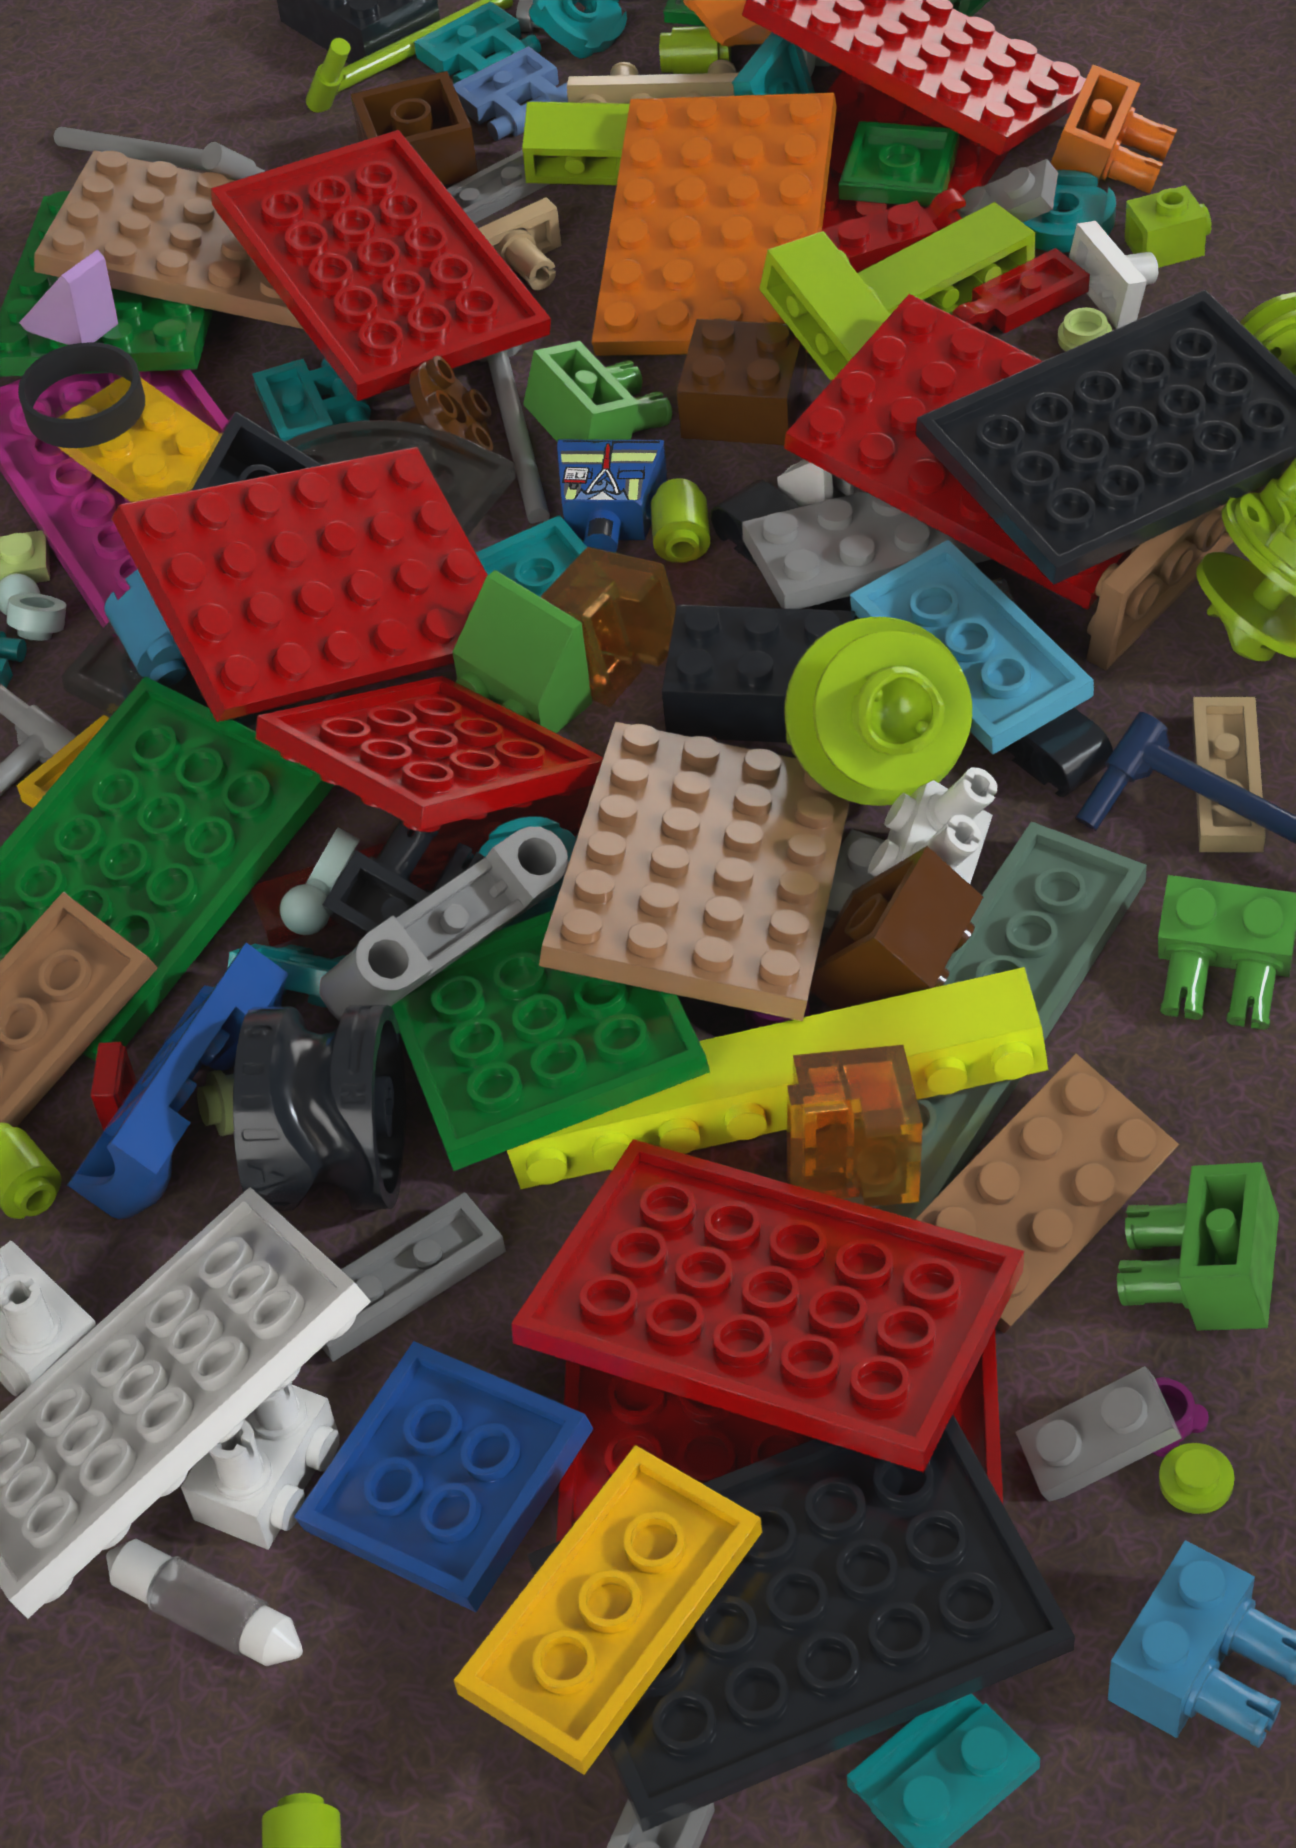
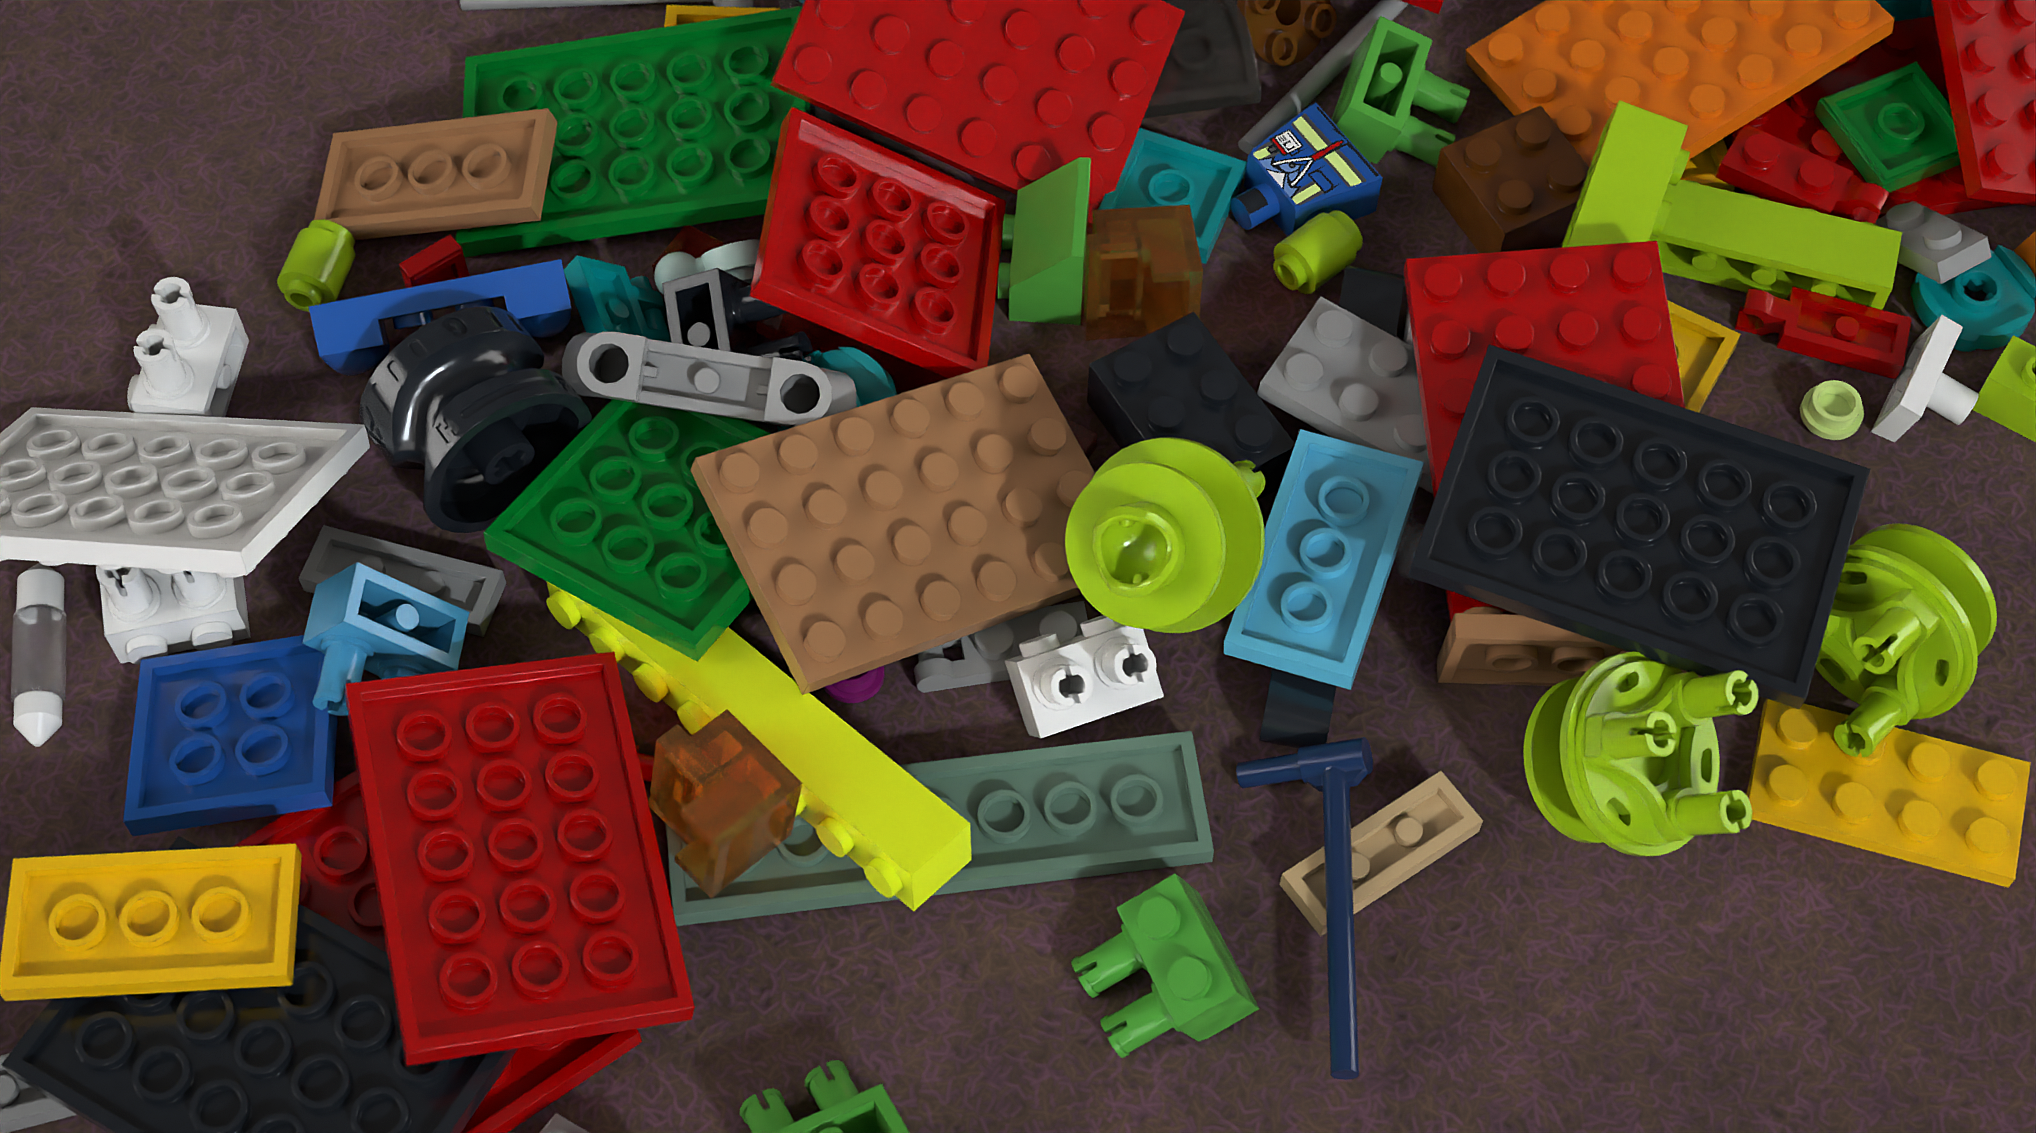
camera: 45 degrees right, 10 degrees up
(462, 1296) = (378, 627): none -> dark azure brick
(895, 933) = (955, 708): reddish brown brick -> none
(1054, 1177) = (810, 983): medium nougat plate -> none

